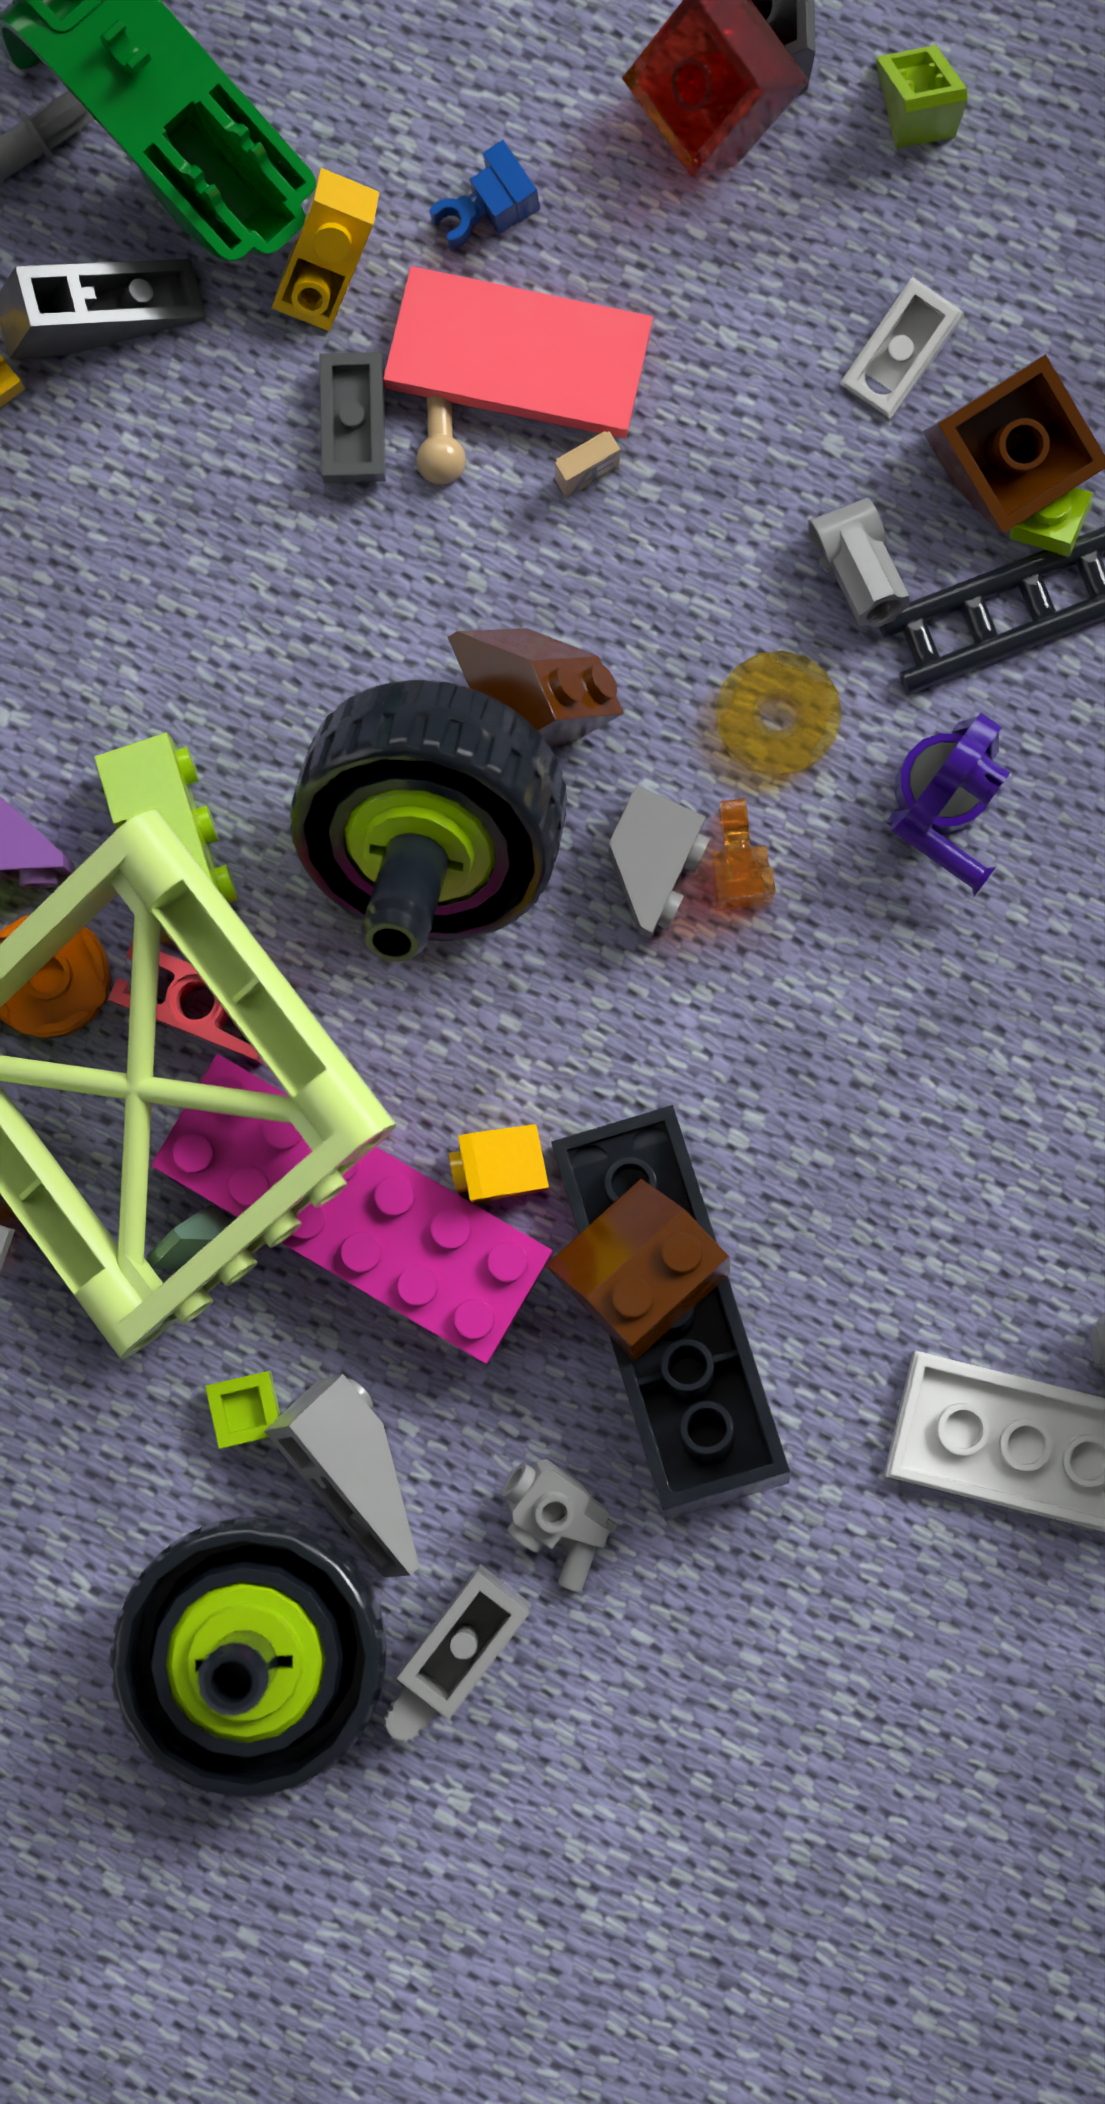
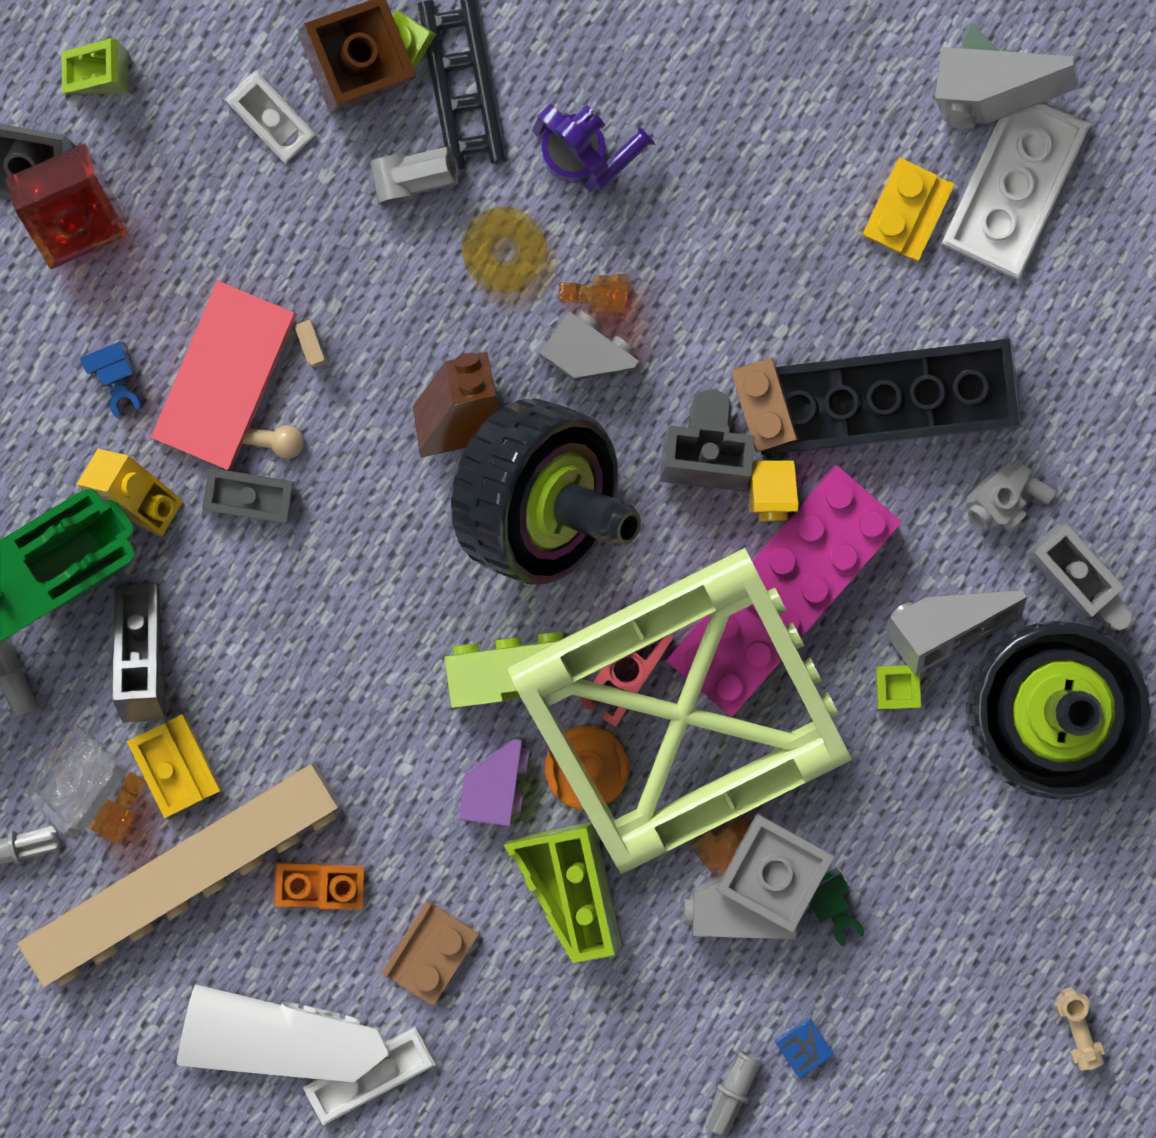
camera: 80 degrees left, 5 degrees up
(188, 1238) = (783, 698): sand green slope -> none
(540, 1059) = (707, 450): none -> dark grey brick
(623, 1130) = (764, 404): none -> medium nougat plate
(640, 1267) = (857, 410): reddish brown slope -> none
(954, 1291) = (908, 209): none -> yellow plate

